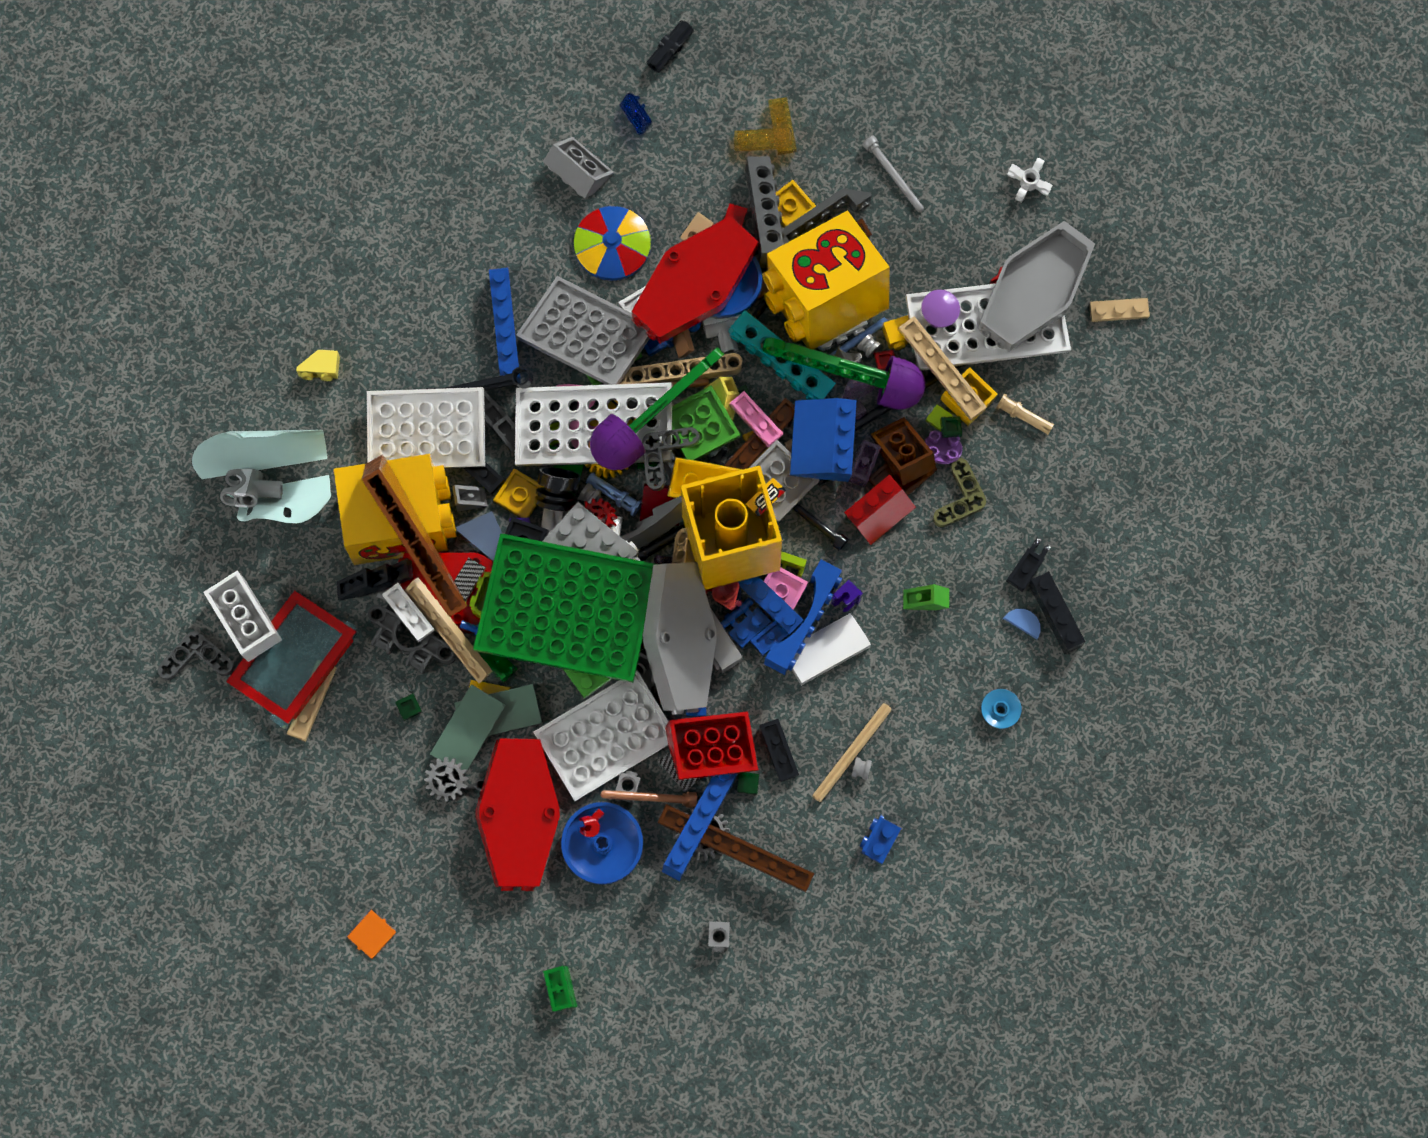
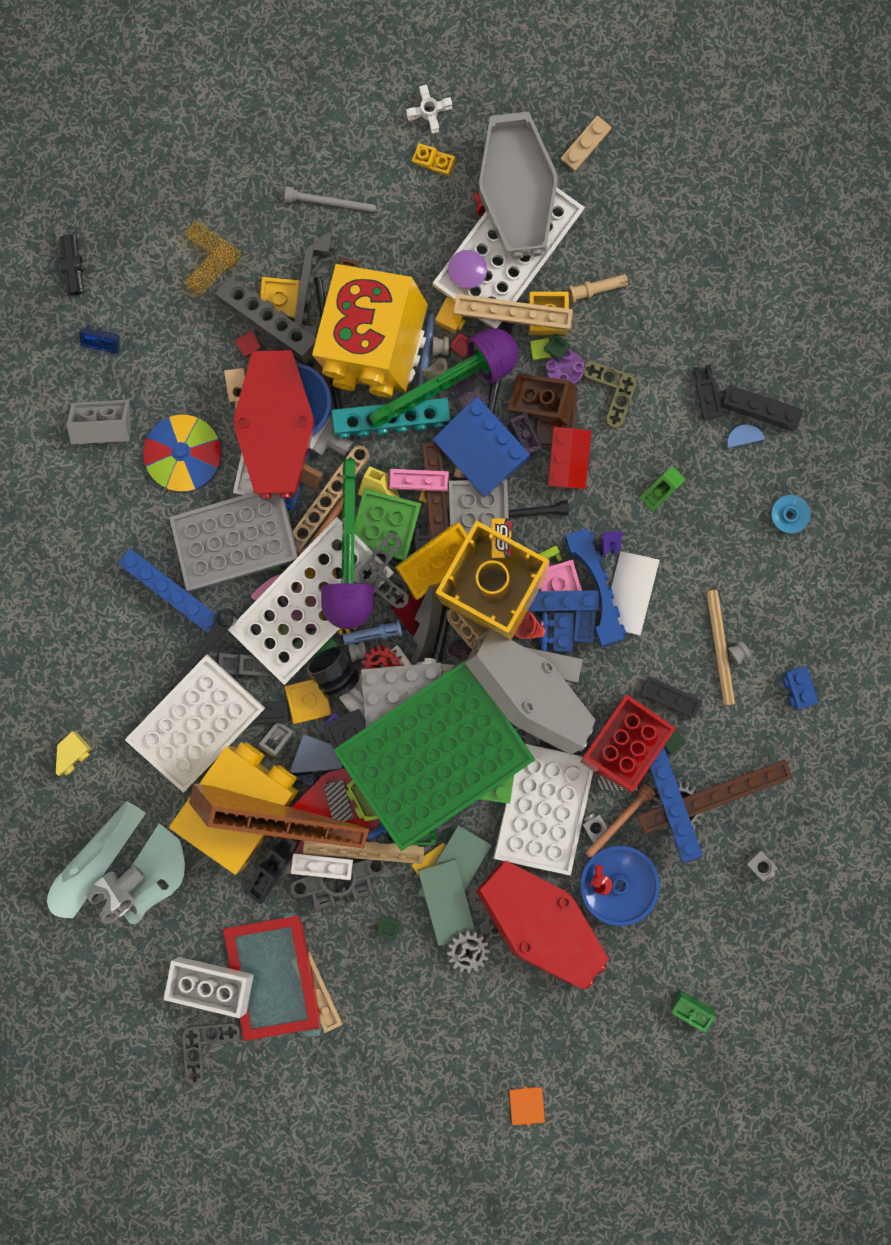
camera: 45 degrees left, 10 degrees up
(460, 543) = (305, 778): none -> dark blue arm
(997, 217) = (432, 159): none -> yellow slope

